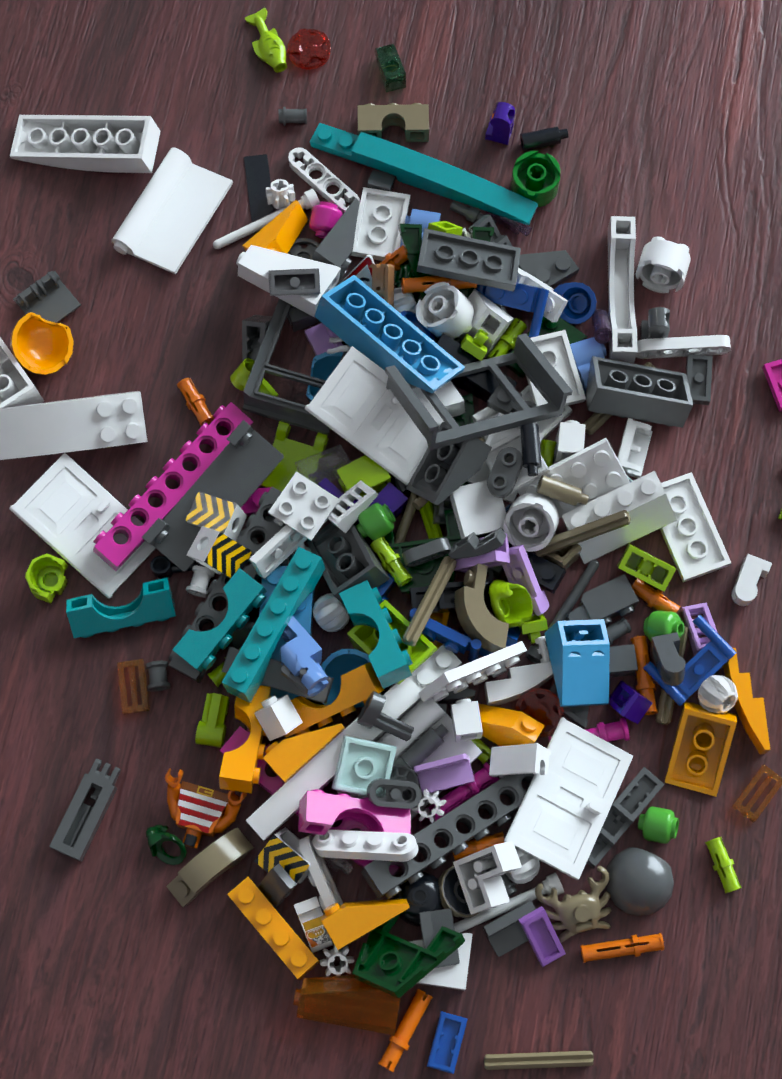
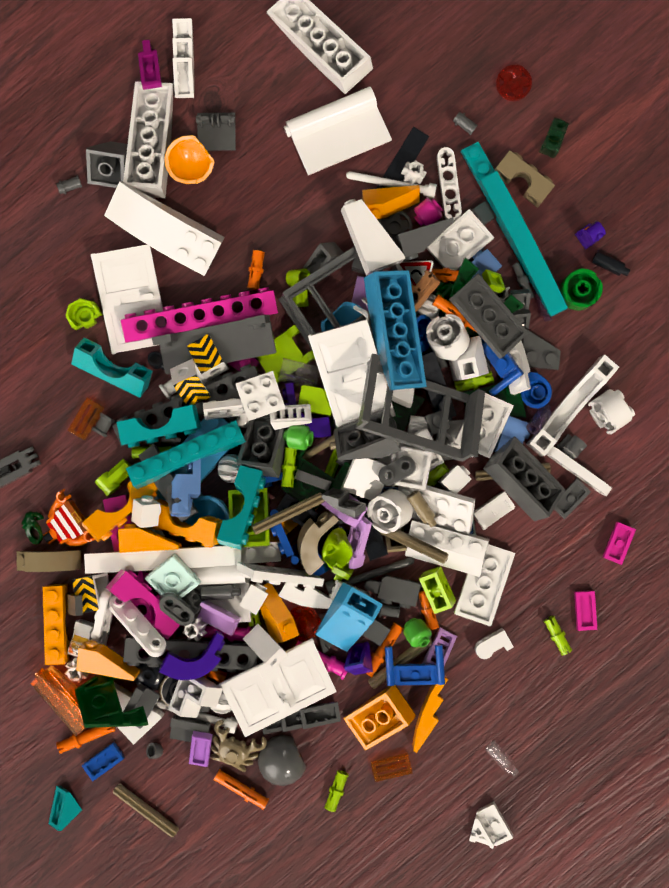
camera: 35 degrees right, 15 degrees up
(269, 46) = (489, 61): lime animal -> none
(294, 281) = (368, 245): flat silver slope -> none
(372, 716) = (199, 556): dark grey piece -> none
(450, 850) = (193, 668): none -> dark purple arch
(475, 344) = (448, 373): lime tile -> none
(493, 983) = (154, 751): none -> dark grey hinge
(530, 448) = (423, 470): black cylinder -> none
(658, 825) = (318, 740): bright green head -> none
(667, 659) = (399, 660): dark grey leg -> none
(717, 694) = (413, 698): white piece -> none

